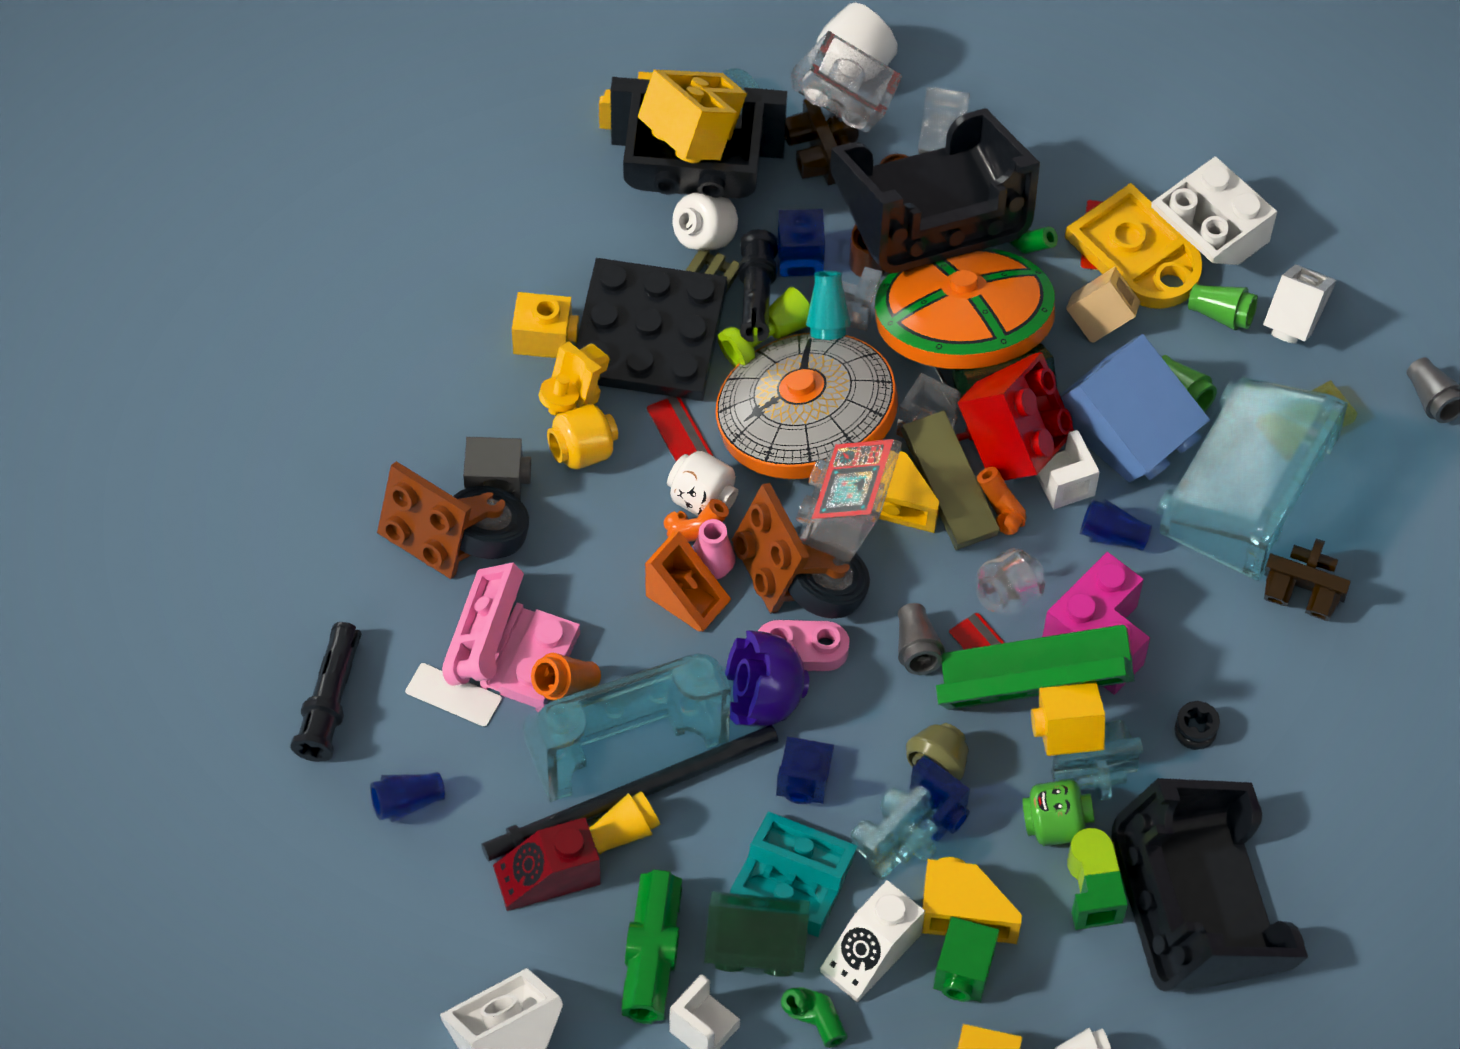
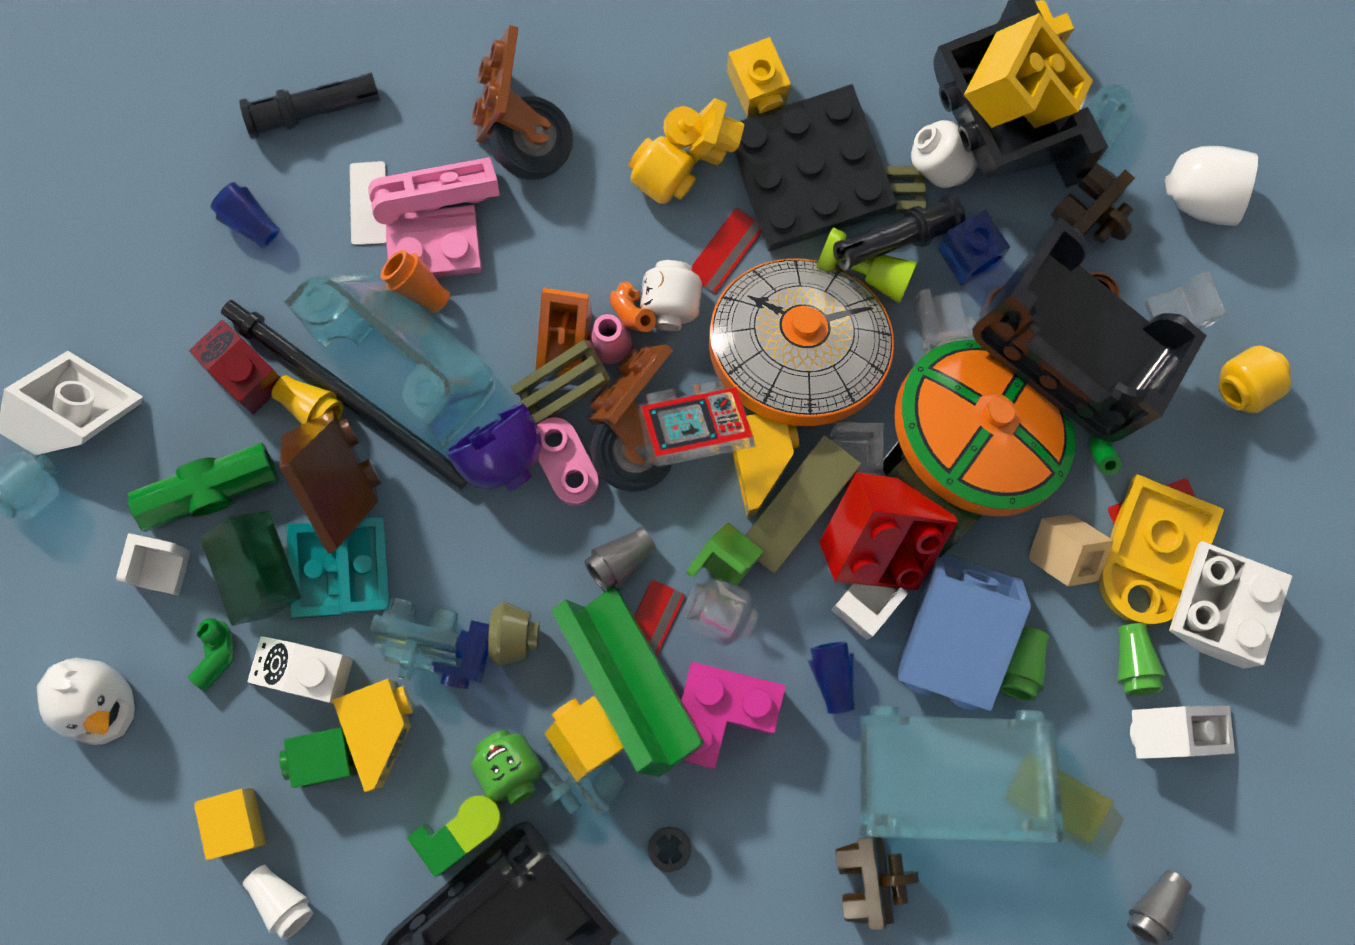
camera: 60 degrees right, 20 degrees up
(496, 464) = (591, 116): dark grey brick -> none
(715, 817) = (329, 477): none -> reddish brown slope
(732, 567) = (559, 363): none -> olive tile
(804, 771) = (439, 527): clear blue bracket -> none
(828, 307) = (904, 309): teal cone -> none
(846, 82) = (1155, 195): clear slope -> none
(964, 552) = (727, 555): none -> bright green panel
(1007, 507) = (808, 559): orange arm -> none
(1035, 106) = (1255, 379): none -> yellow head

